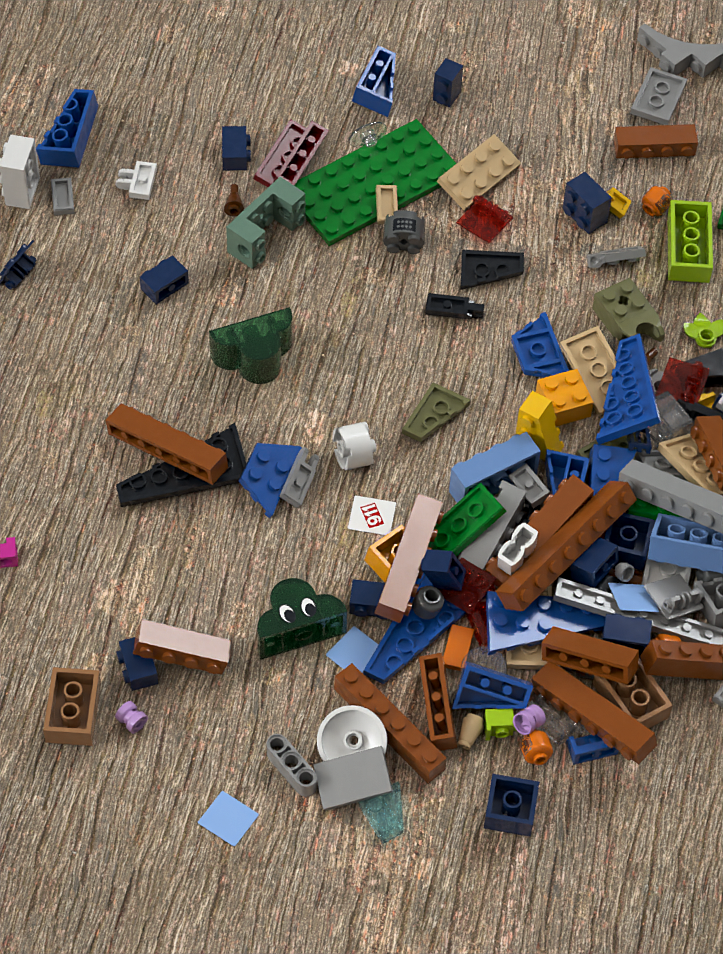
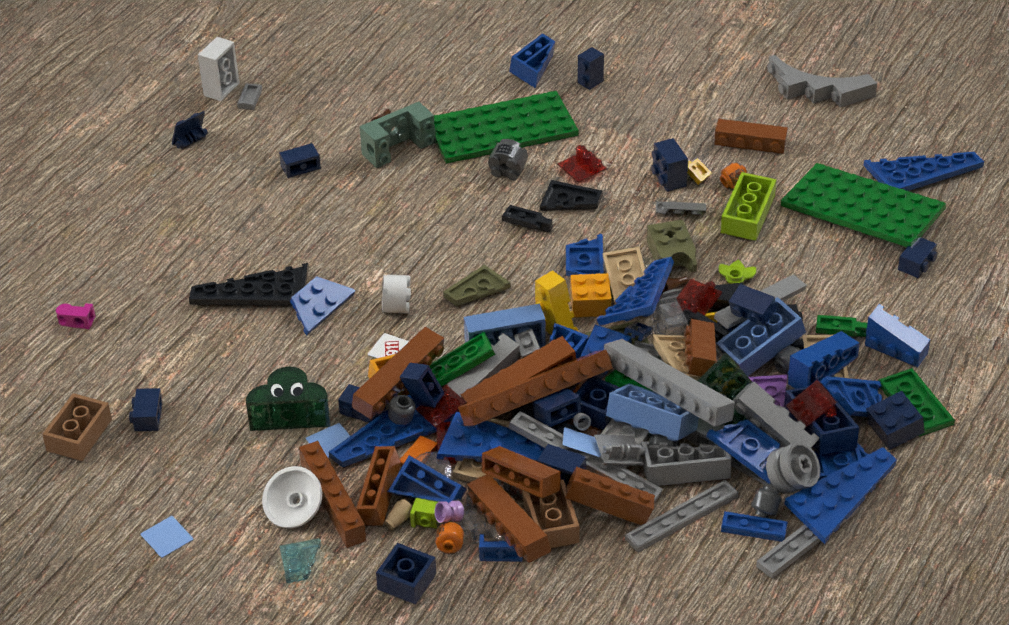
camera: 20 degrees right, 15 degrees down
(70, 133) = (274, 53): blue wedge -> none
(131, 717) = (122, 446): lavender wheel -> none
(138, 181) = (313, 96): white hinge -> none
(167, 443) = (244, 264): dark orange brick -> none
(181, 647) = (184, 402): brick -> none
(235, 148) = (399, 86): dark blue brick -> none
(253, 345) = (348, 212): clear green brick -> none
(291, 153) = (445, 93): slope -> none
(293, 775) = (235, 506): light grey beam -> none
(299, 478) = (341, 310): light grey hinge -> none
(353, 778) = (280, 525): light grey tile -> none
(367, 134) = (508, 90): clear dish -> none
(385, 201) = (503, 132): tan tile -> none
(479, 171) = (591, 131): tan plate -> none
(519, 547) = (489, 378): white brick -> none
(658, 96) = (768, 106): light grey plate -> none

